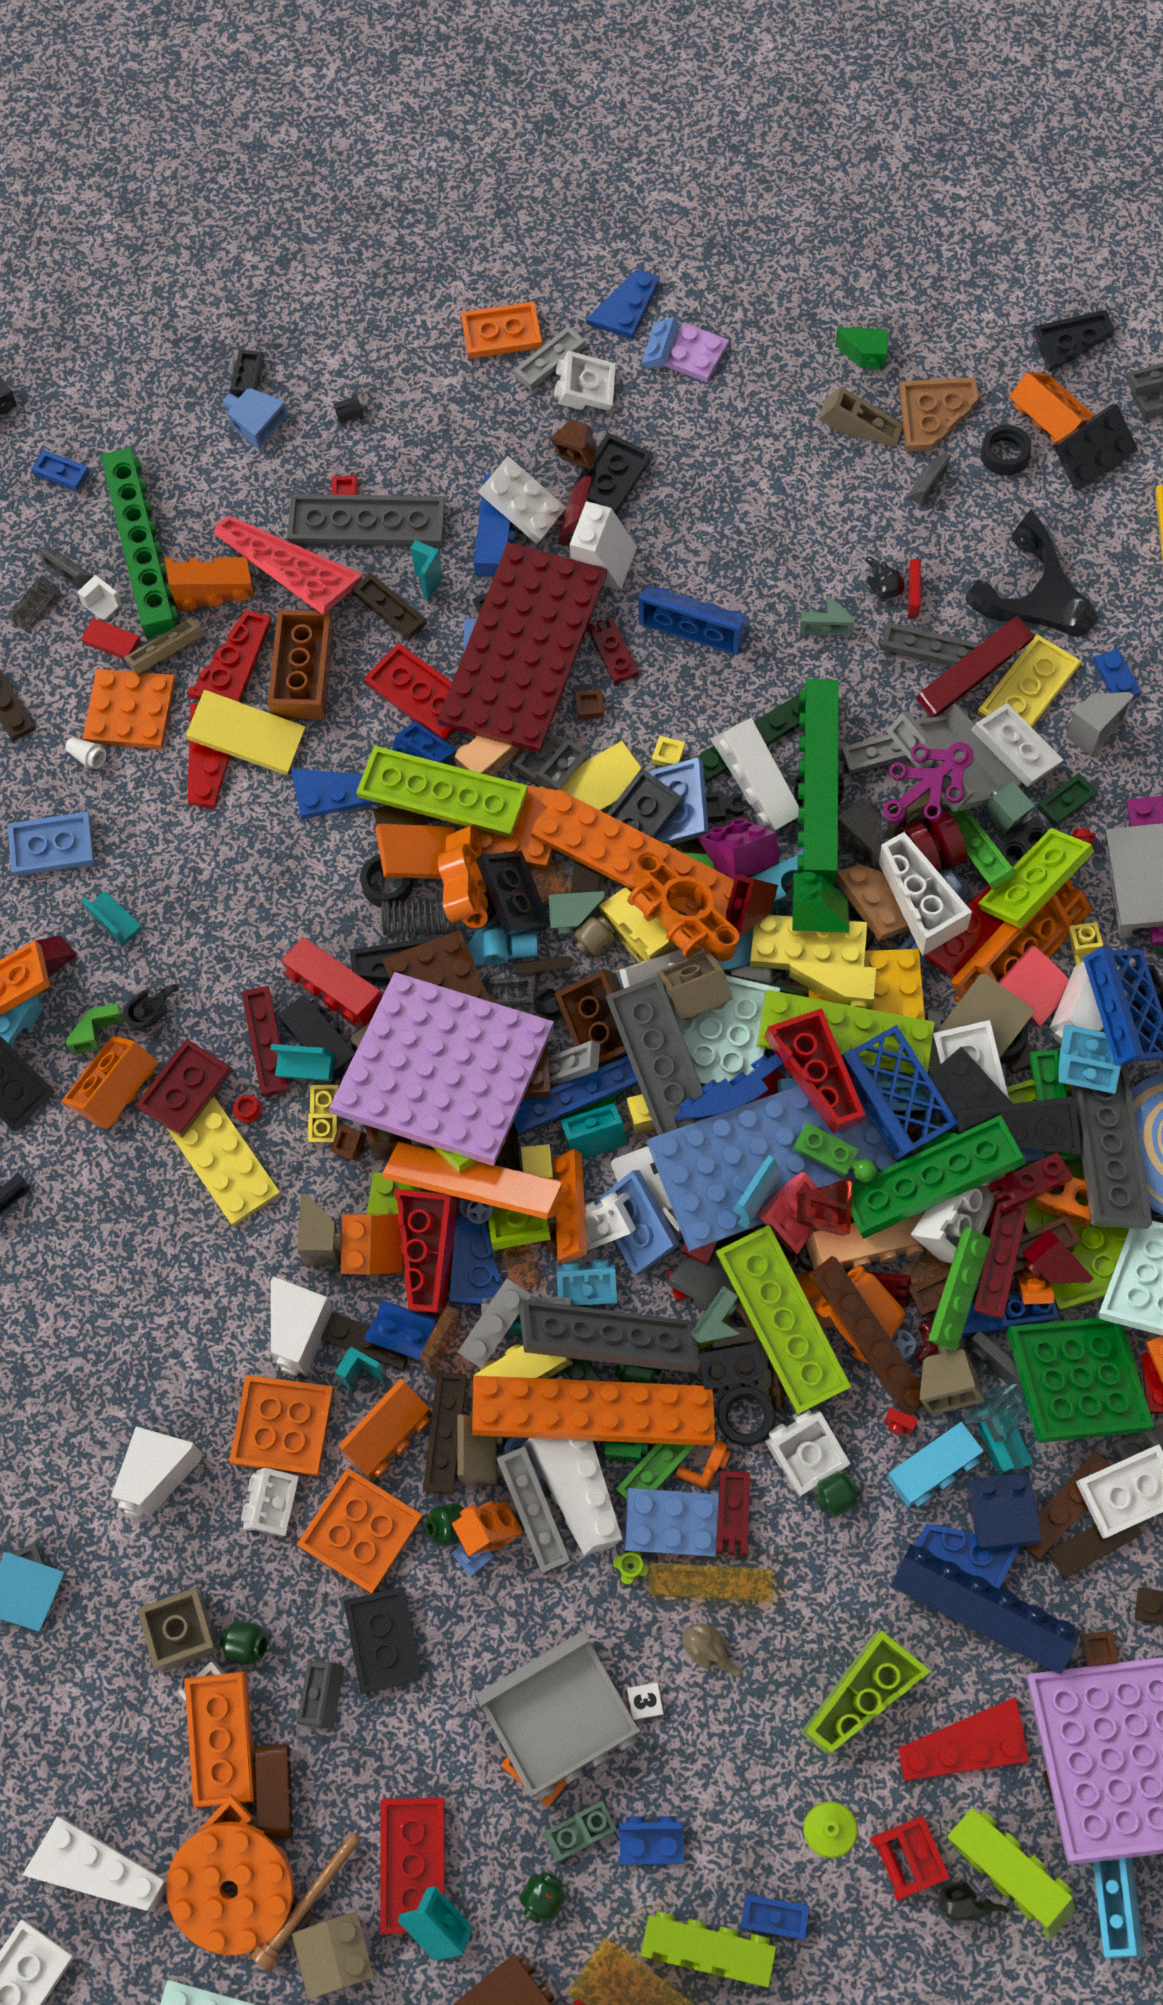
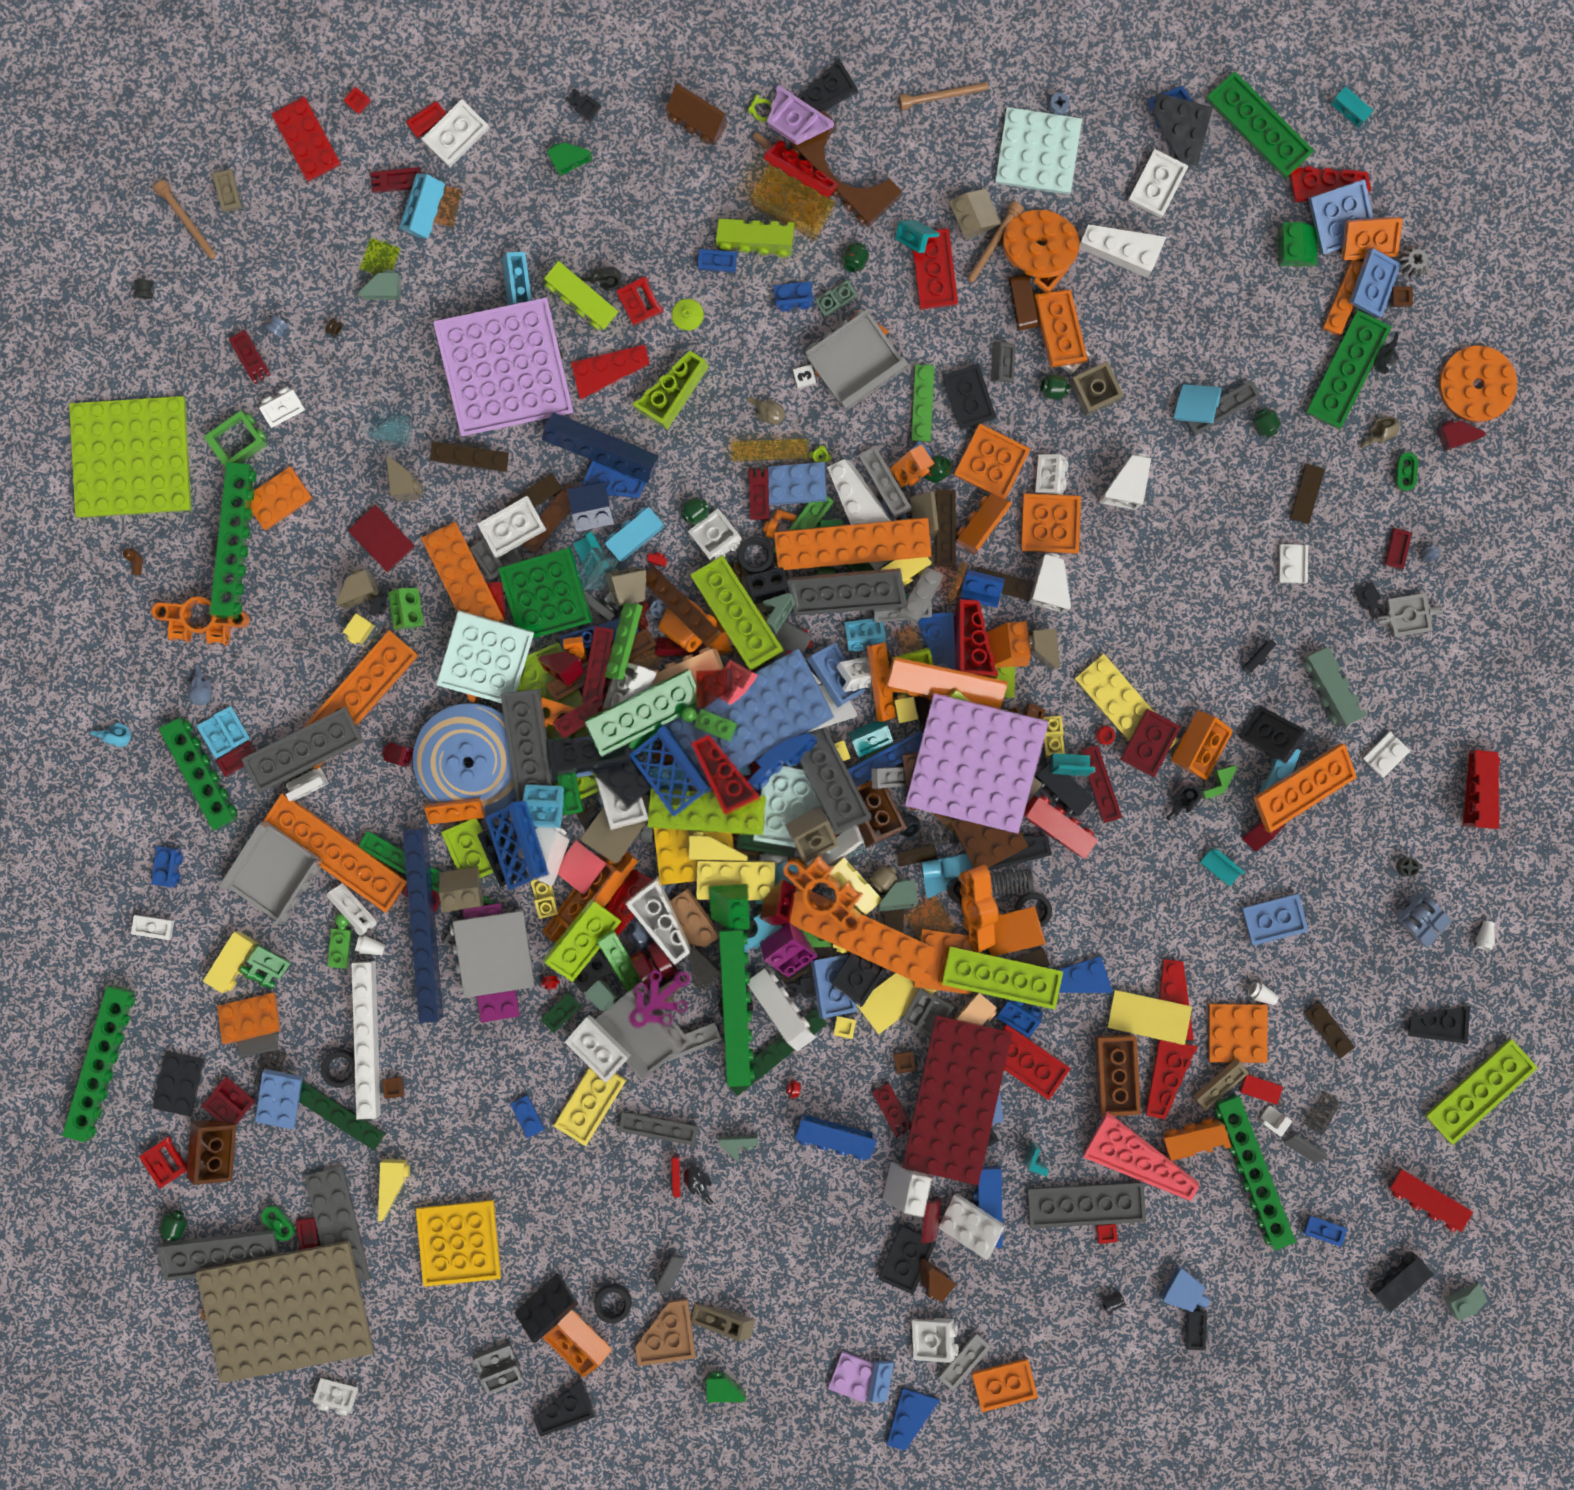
camera: 170 degrees right, 20 degrees up
(354, 1365) = (1007, 564): teal panel -> none
(389, 606) = (1059, 1131): dark brown plate -> none
(458, 1639) = (922, 403): none -> bright green plate
(513, 892) = (943, 902): black plate -> none
(746, 681) = (793, 1089): none -> red plate
(757, 1191) = (759, 685): medium azure slope -> none
(975, 667) = (629, 1109): dark red beam -> none
(1053, 598) = (574, 1175): black animal -> none
(1097, 719) = (542, 1073): light grey slope -> none
(1099, 1648) = (530, 431): reddish brown plate -> none

